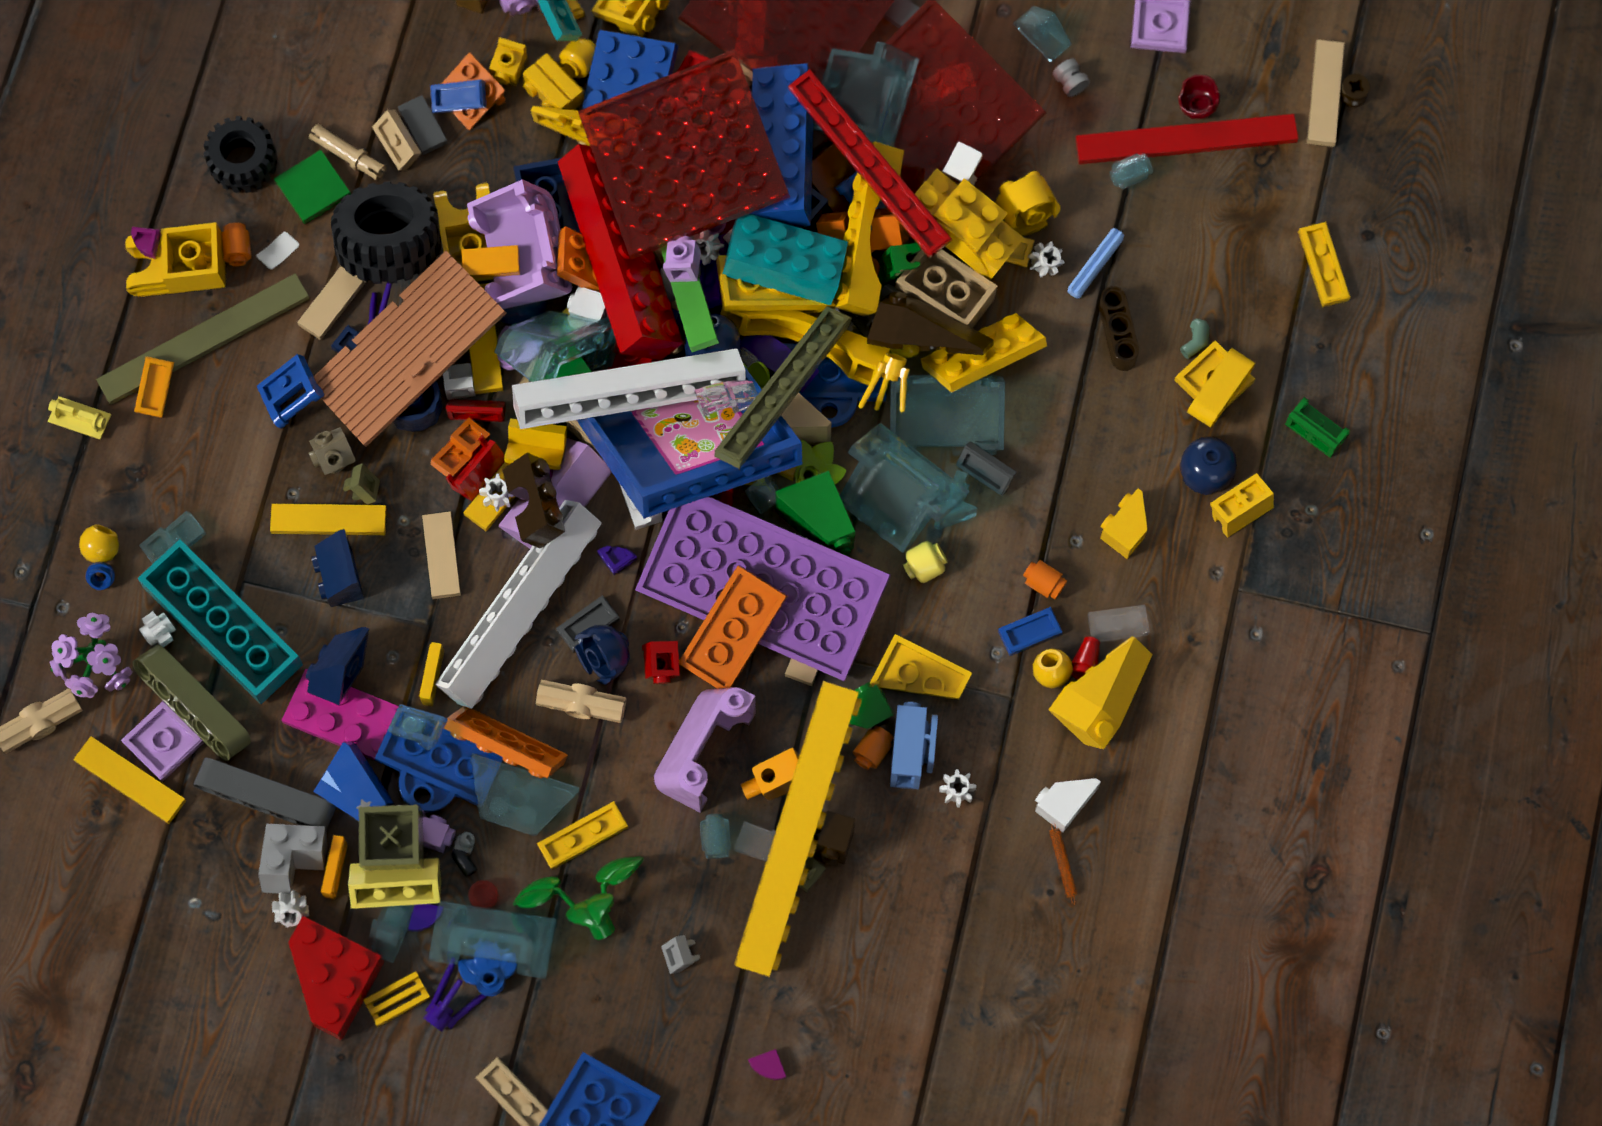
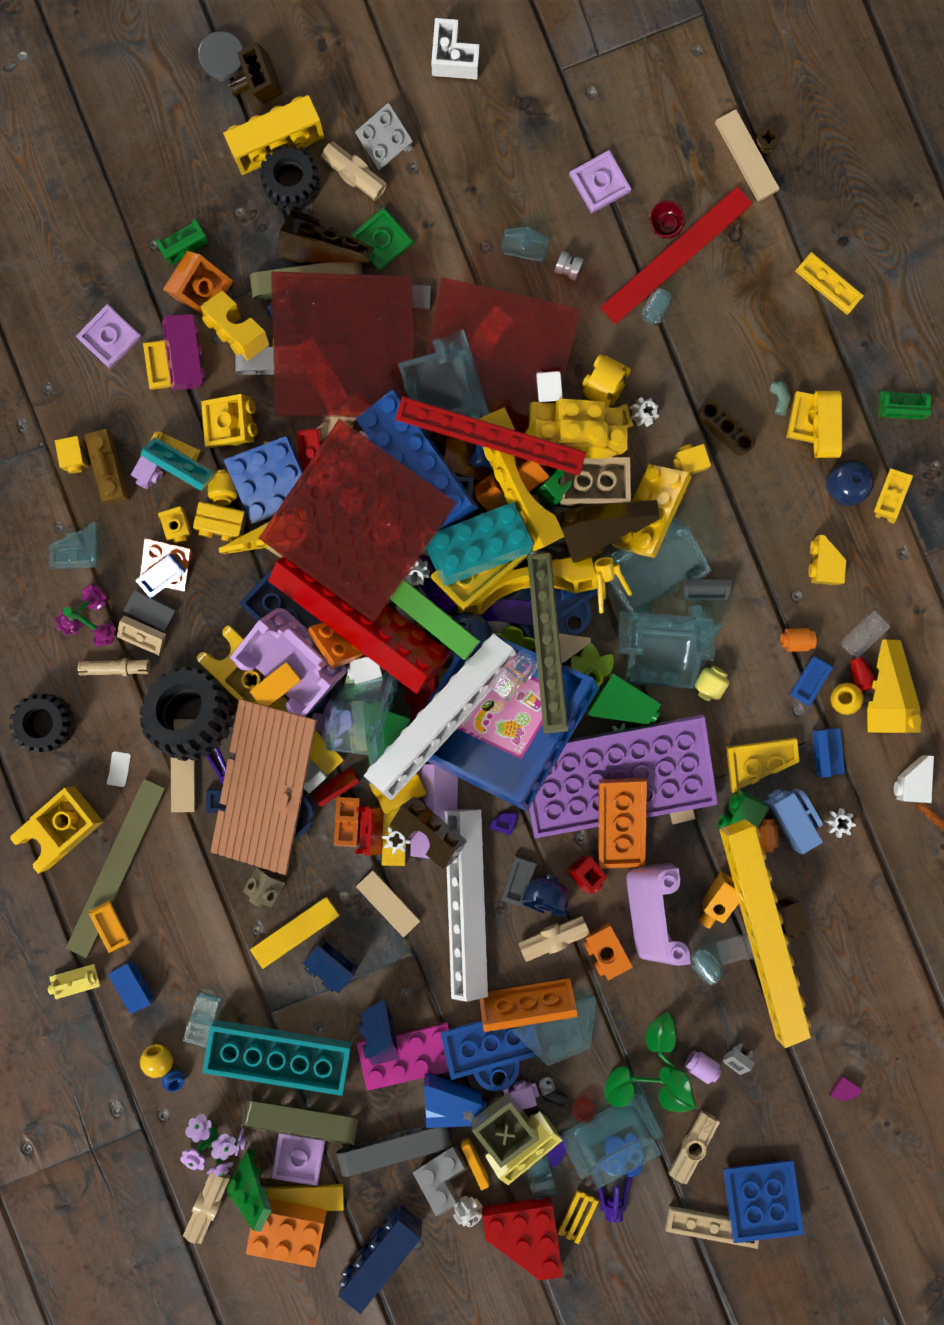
camera: 40 degrees left, 15 degrees up
(92, 728) = (248, 1193): none -> green wing
(96, 797) = (289, 1234): none -> orange brick
(129, 461) = (131, 987): none -> blue panel
(146, 240) = (26, 833): magenta tile -> none
(157, 629) = (239, 1091): white gear -> none
(169, 886) = (380, 1258): none -> dark blue brick
(236, 244) = (88, 787): orange brick -> none
(286, 383) = (196, 864): blue plate -> none
(312, 187) = (108, 708): green tile -> none
(341, 82) = (71, 619): none -> magenta plant
(363, 484) = (301, 895): olive tile -> none
(395, 22) = (76, 550): none -> clear light blue wing
(417, 726) = (467, 1042): clear light blue slope -> none
(431, 674) = (442, 990): yellow tile -> none
(550, 1018) = (687, 1160): none -> tan piece
(582, 835) = (618, 1024): yellow tile -> none
(630, 767) = (617, 961): none -> orange brick
(637, 934) = (703, 1067): none -> lavender brick
(682, 260) = (418, 602): lavender brick -> none
(997, 713) = (828, 752): none -> blue panel
(1061, 336) = (691, 459): none -> yellow brick
(1095, 263) = (677, 390): light blue axle -> none

